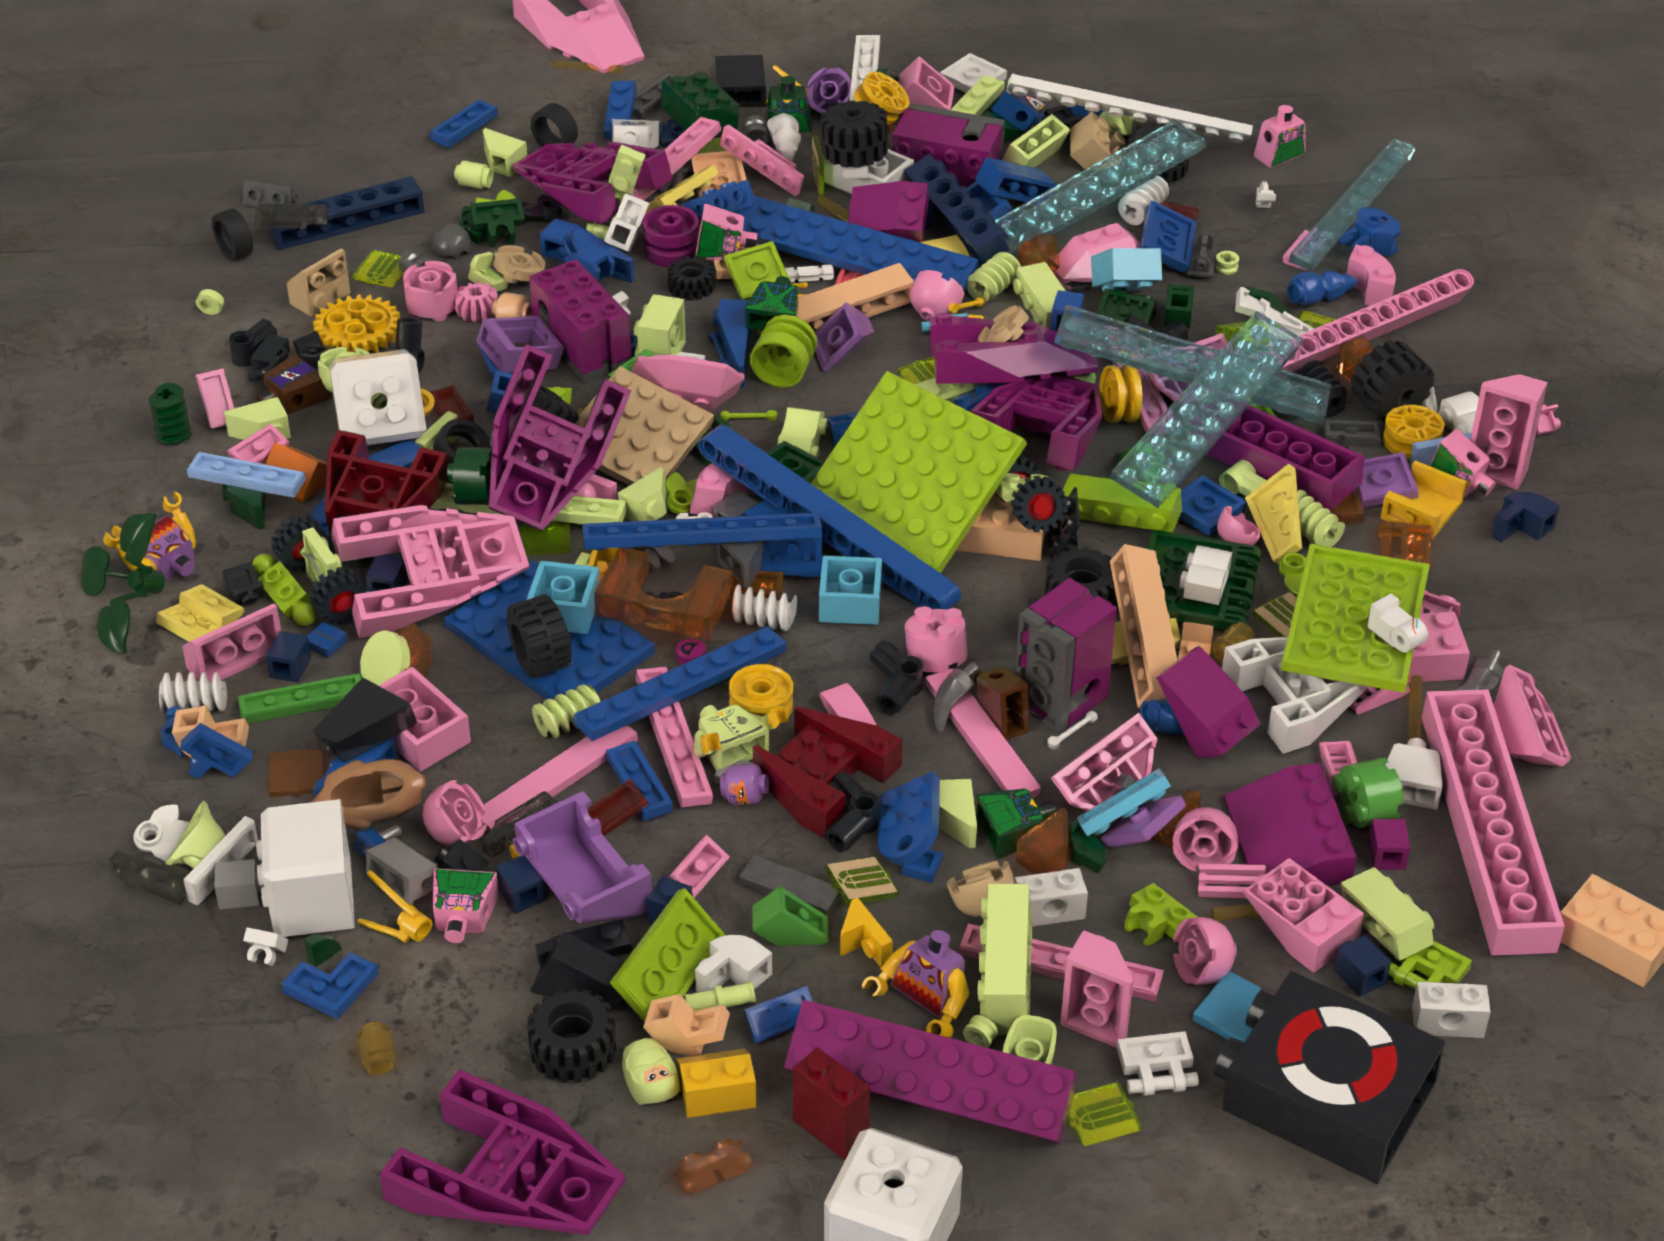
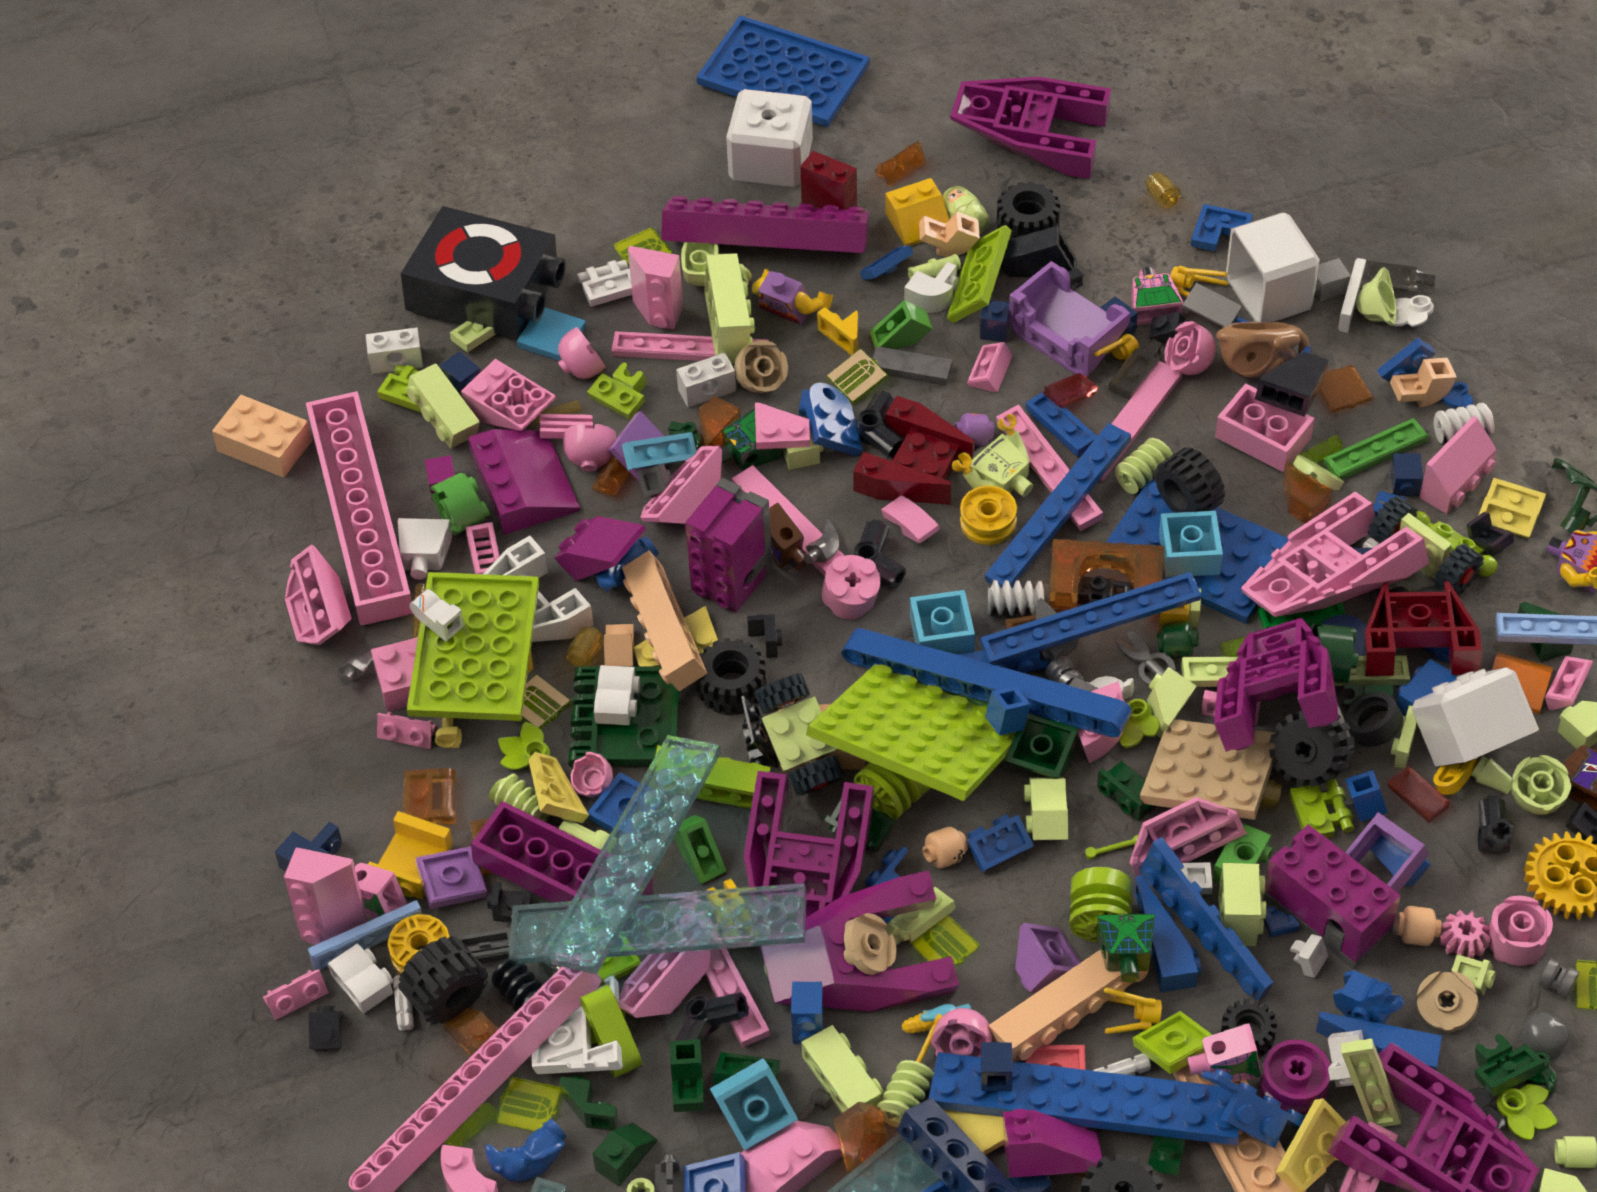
camera: 170 degrees right, 10 degrees up
(705, 328) = (1163, 872): none -> blue wing
(817, 467) = (1007, 710): none -> blue brick
(917, 250) = (996, 1066): none -> dark blue brick
(975, 798) = (780, 428): none -> bright pink wing
(1240, 272) = (622, 1152): none -> dark green slope

